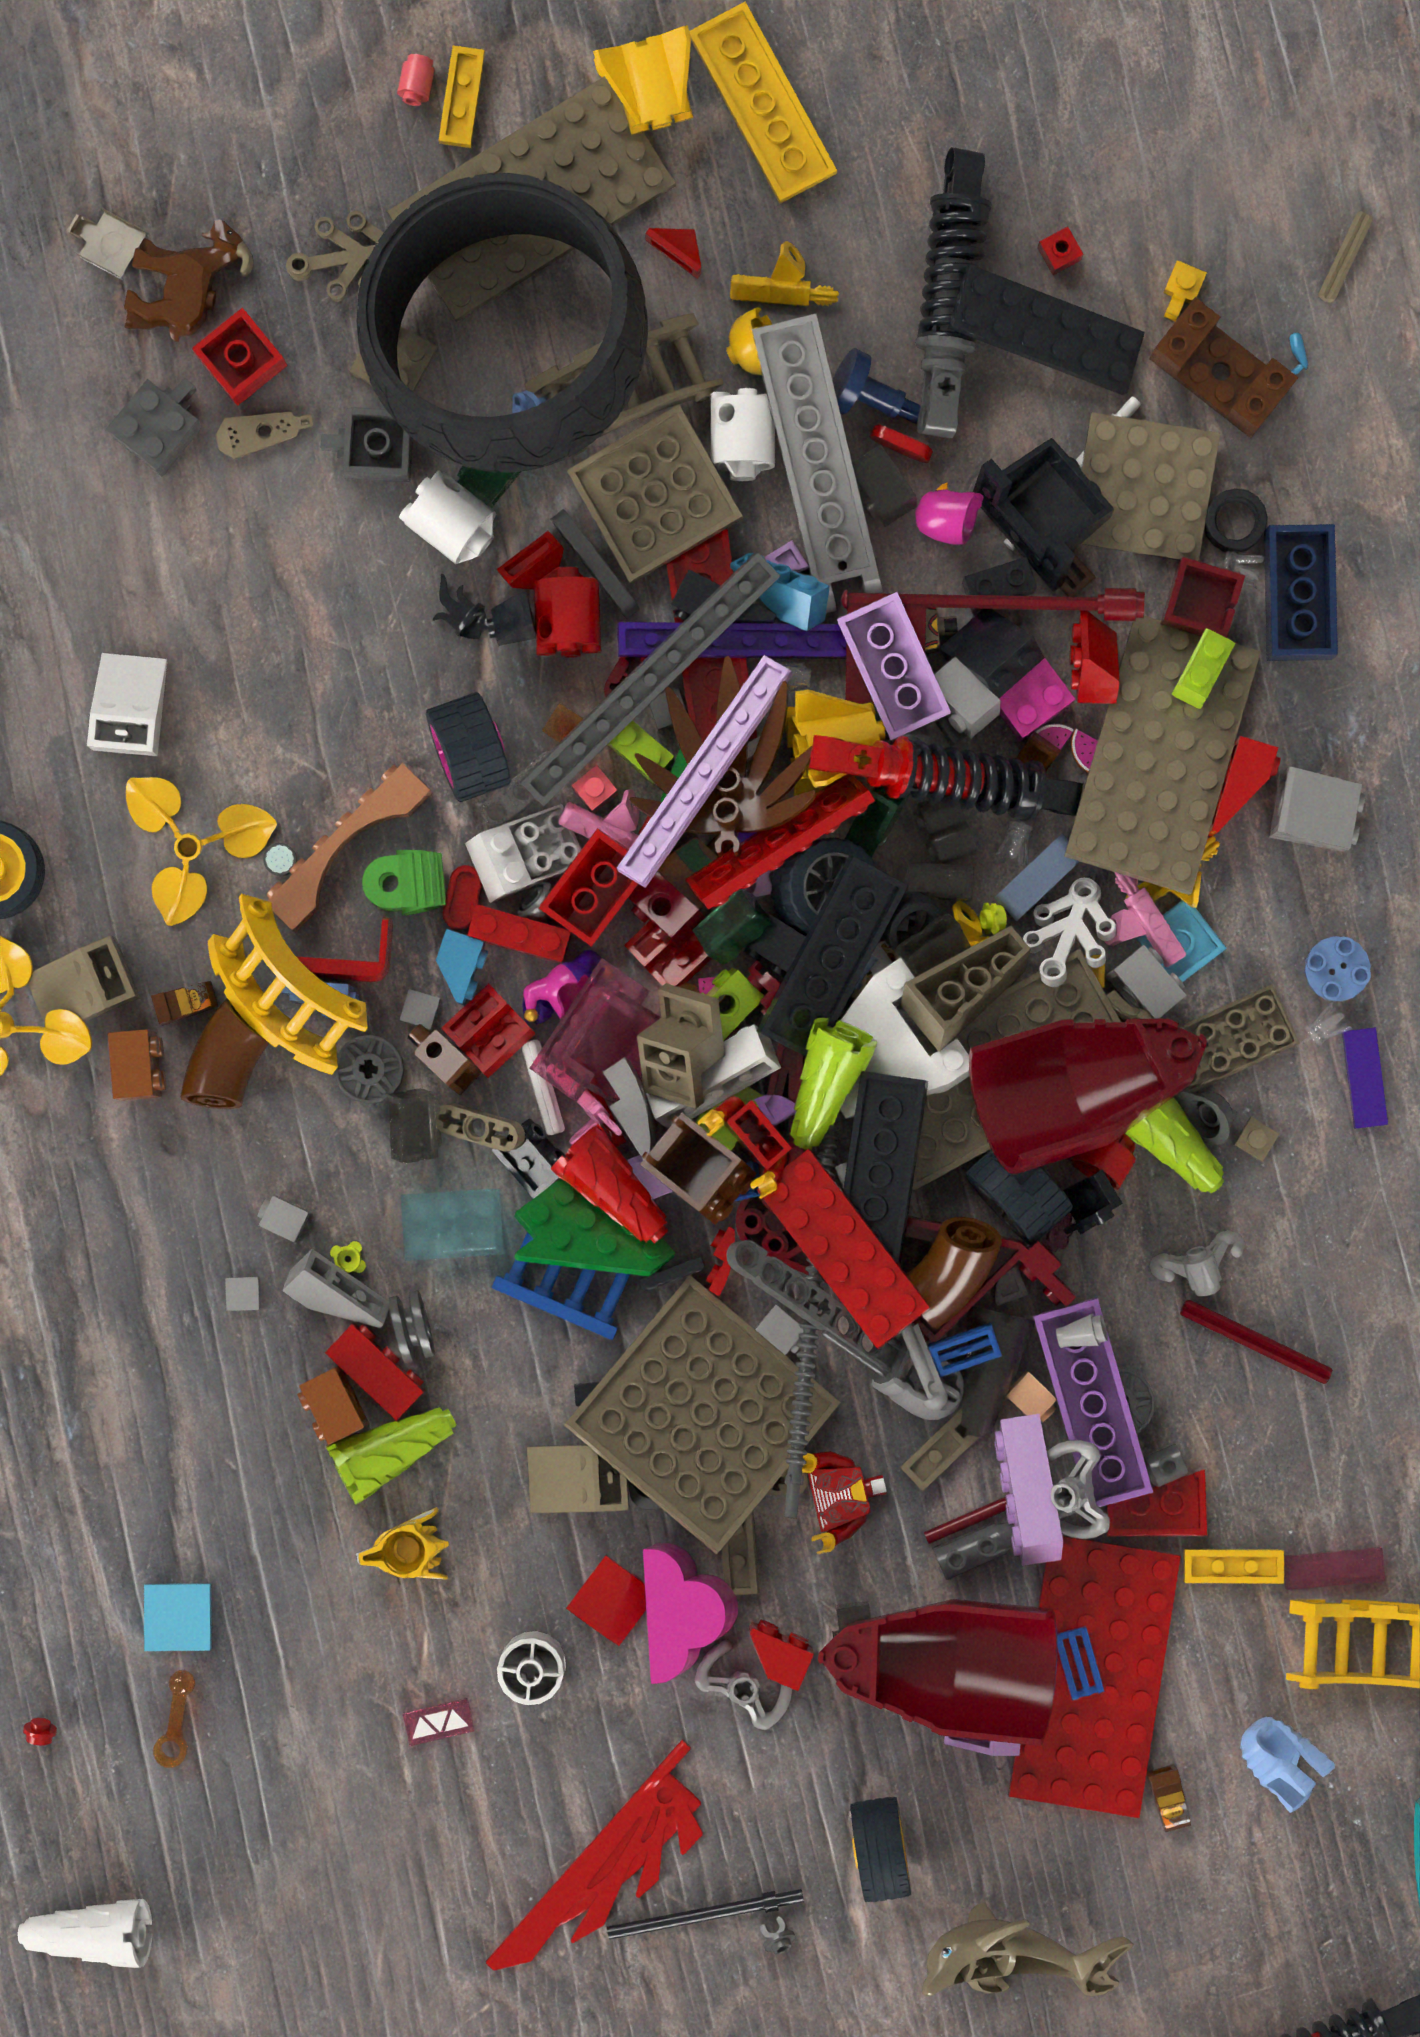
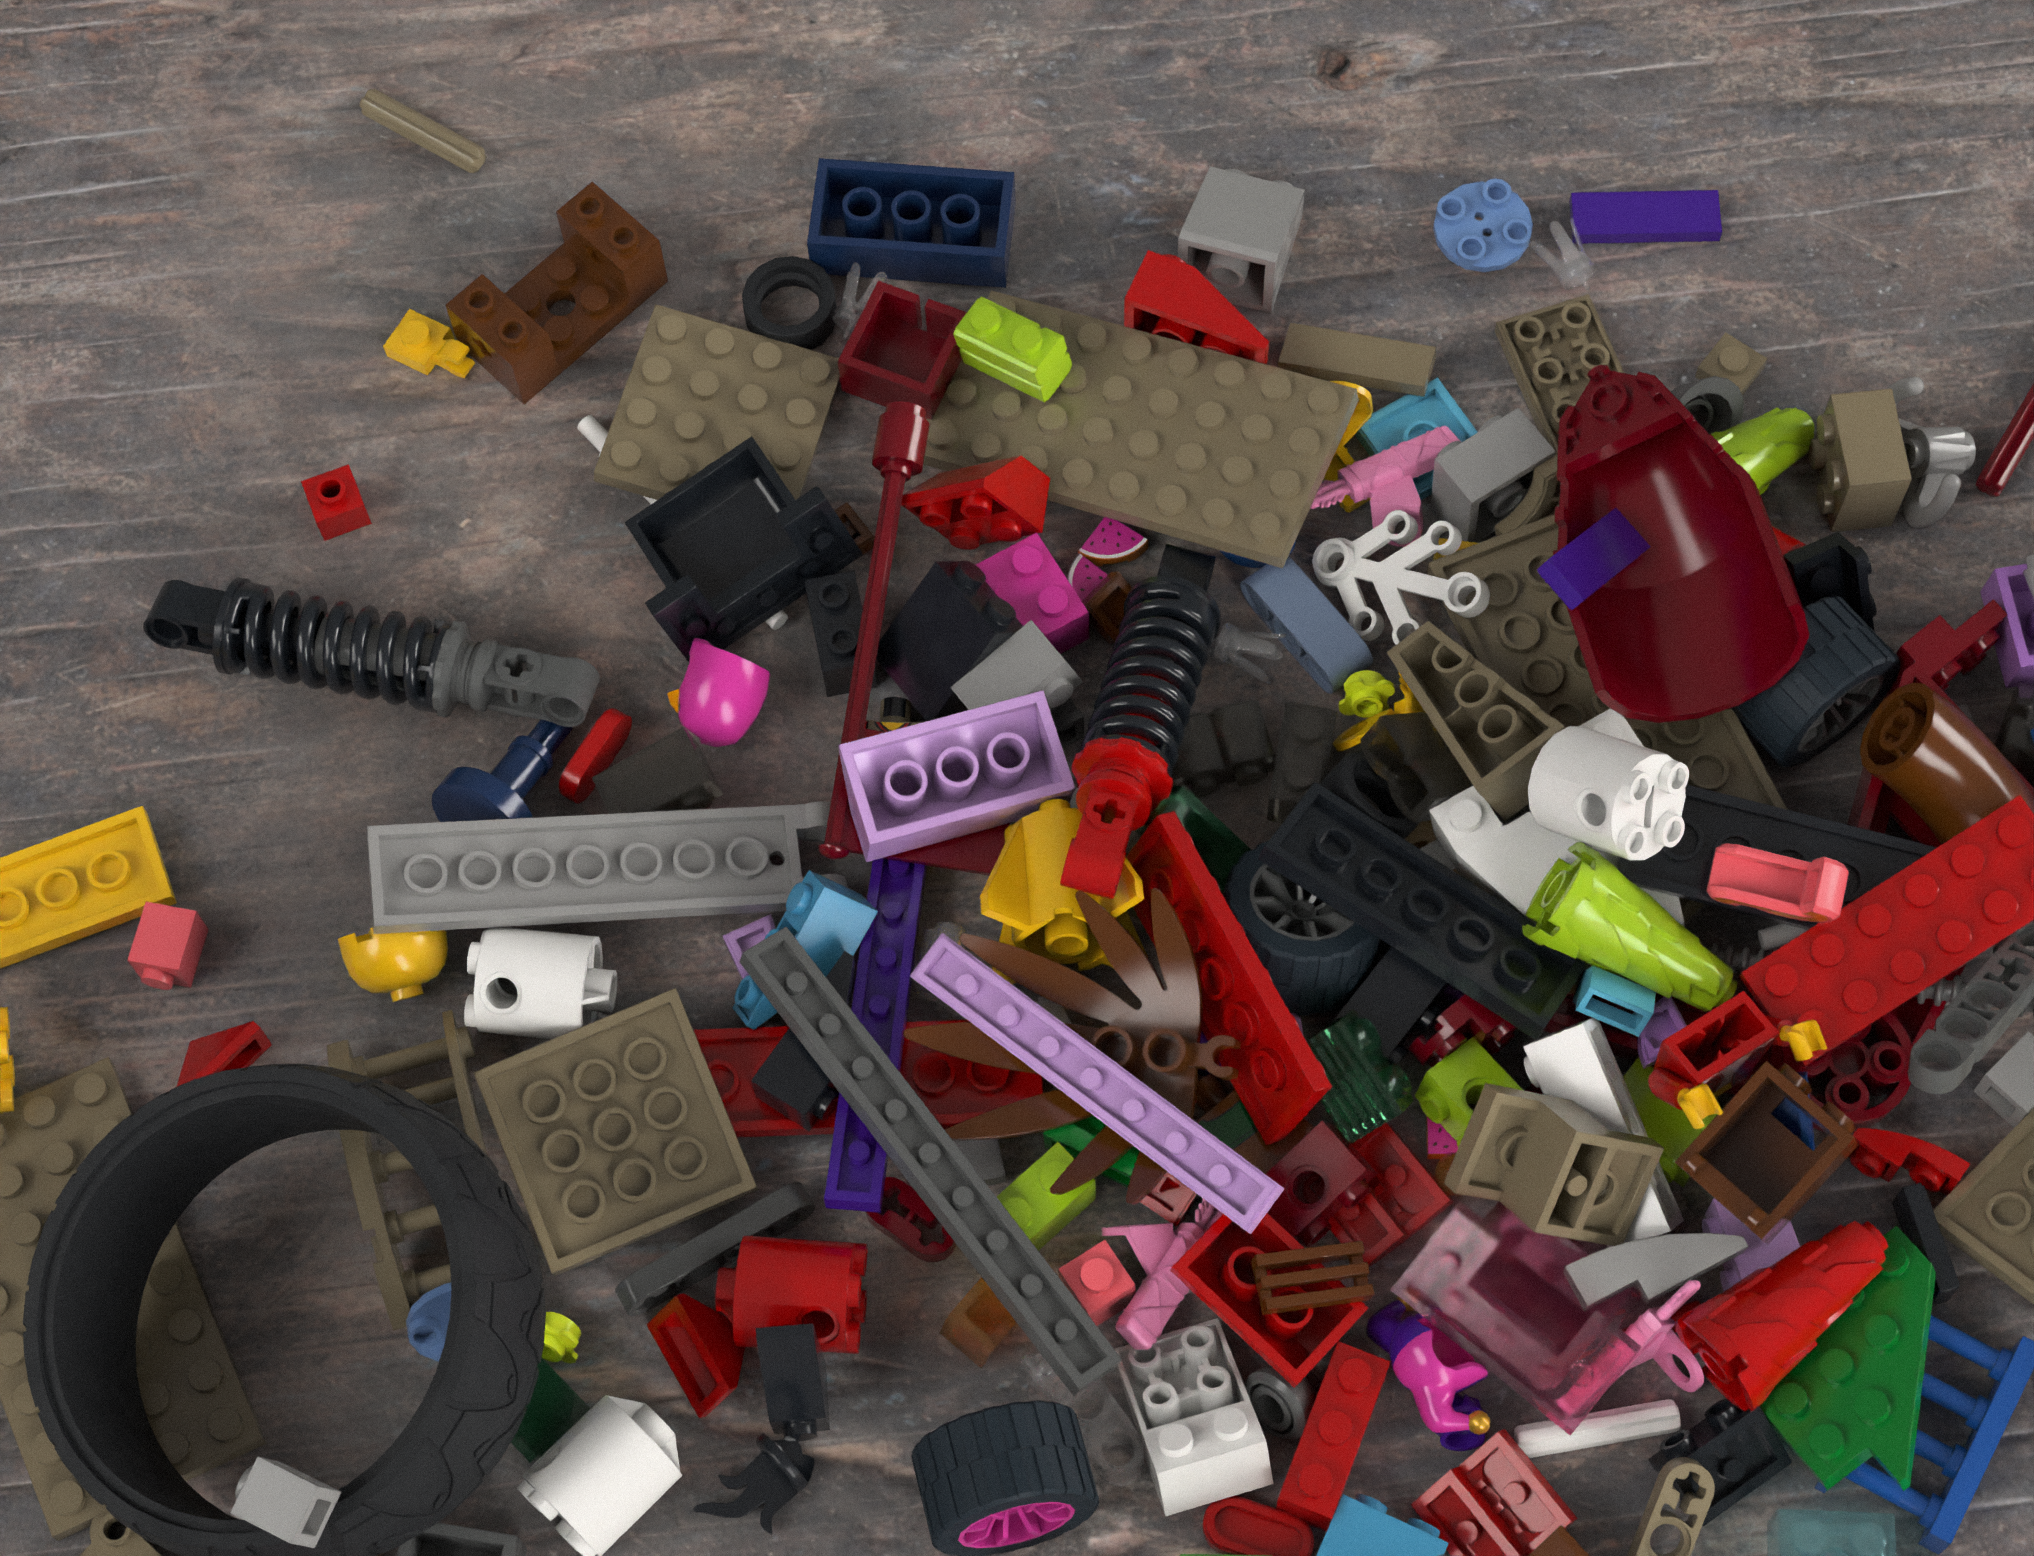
camera: 80 degrees left, 20 degrees down
(379, 343) = (284, 1502): none -> light grey brick
(531, 480) = (560, 1338): none -> neon yellow plate
(610, 938) = (1314, 1255): none -> reddish brown tile
(747, 204) = (167, 946): none -> coral brick
(784, 284) = (311, 907): yellow piece -> none
(787, 1076) = (1616, 990): none -> medium azure piece
(860, 1164) = (1778, 883): none -> coral animal
(901, 1057) = (1608, 793): none -> white cylinder
(1046, 330) = (453, 523): black plate -> none
(1070, 1044) = (1593, 558): none -> dark purple tile
(1184, 1220) = (1860, 460): none -> dark tan brick
(1233, 894) = (1358, 359): none -> dark tan tile
(1298, 351) = (545, 203): dark azure piece -> none

